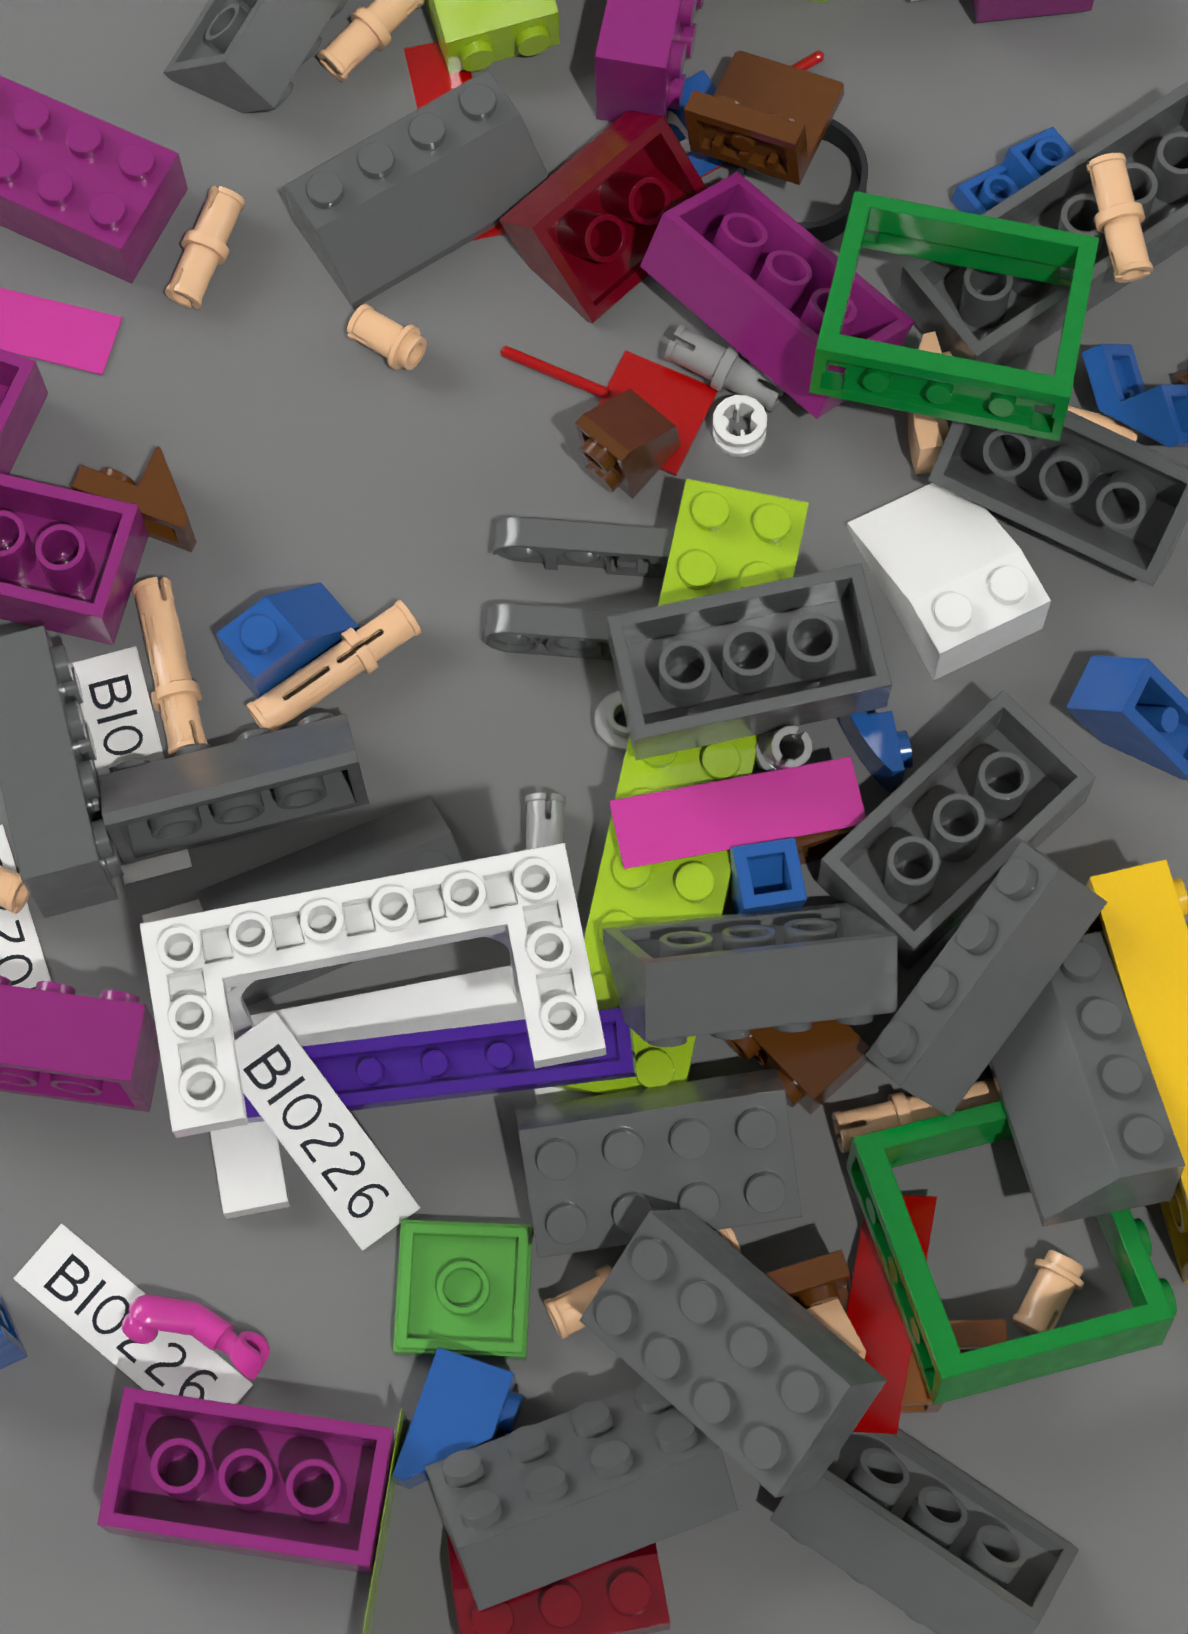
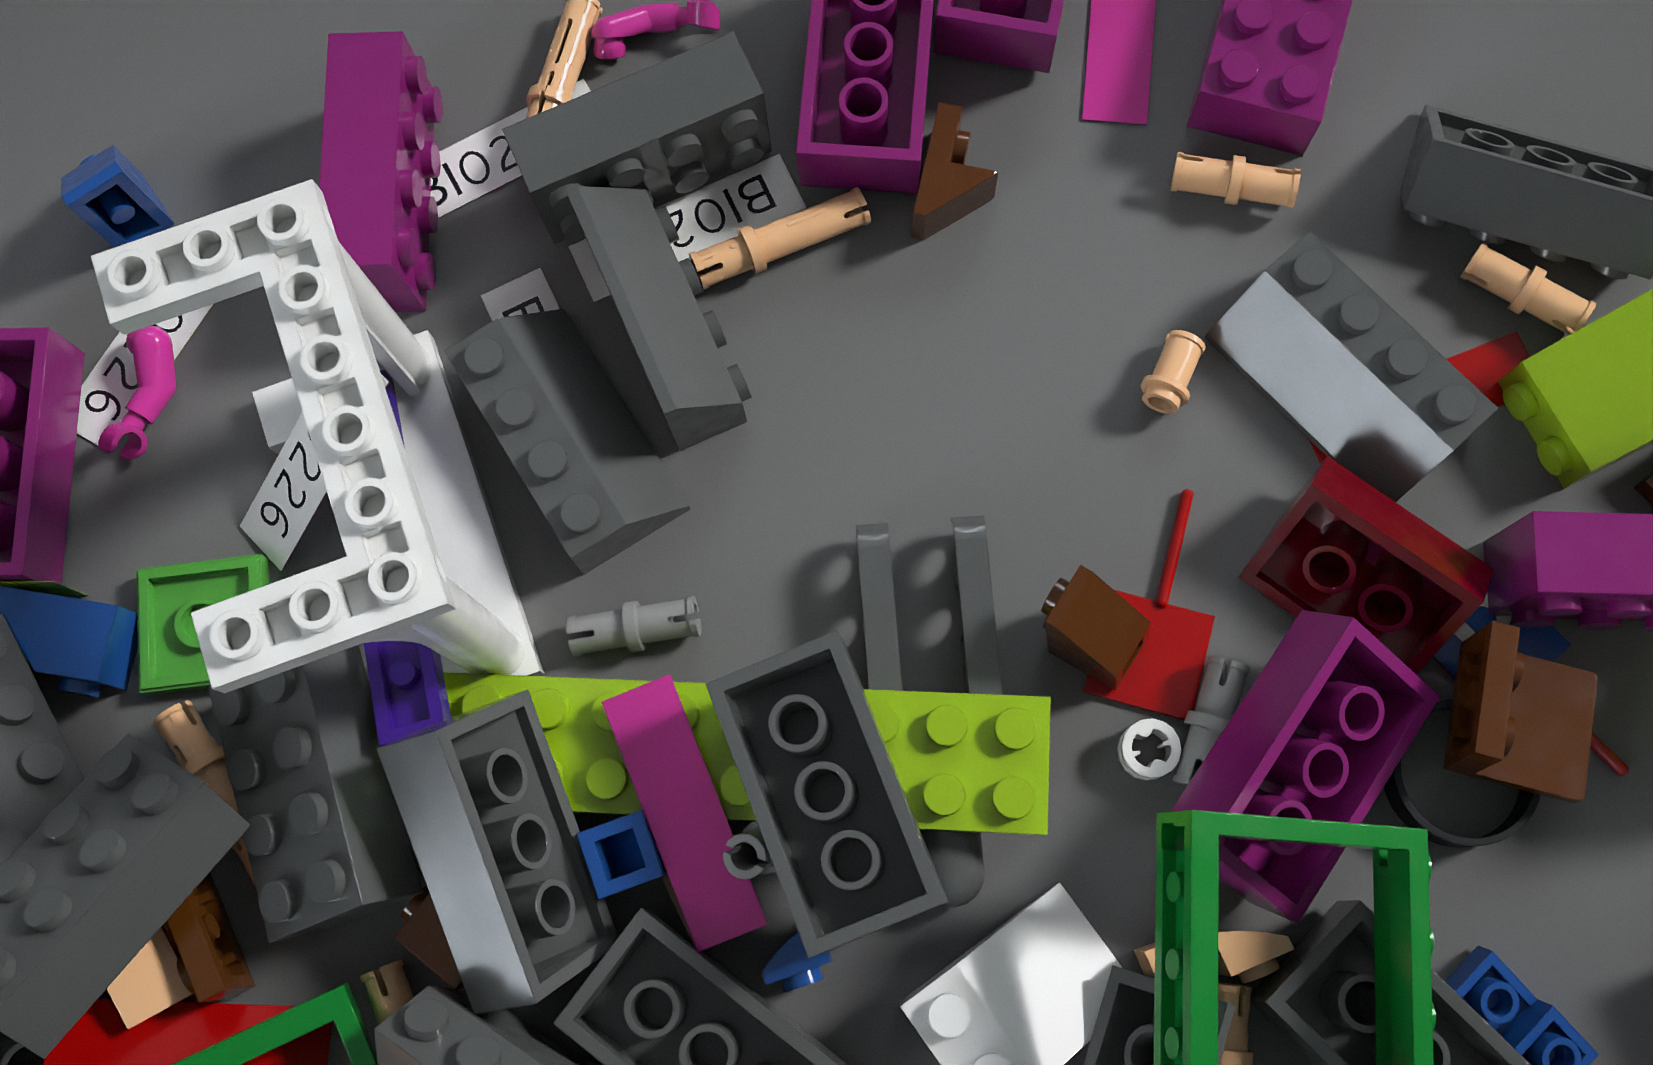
camera: 85 degrees right, 5 degrees up
(282, 635) = (827, 335): blue slope -> none
(335, 667) = (854, 437): light nougat pin -> none

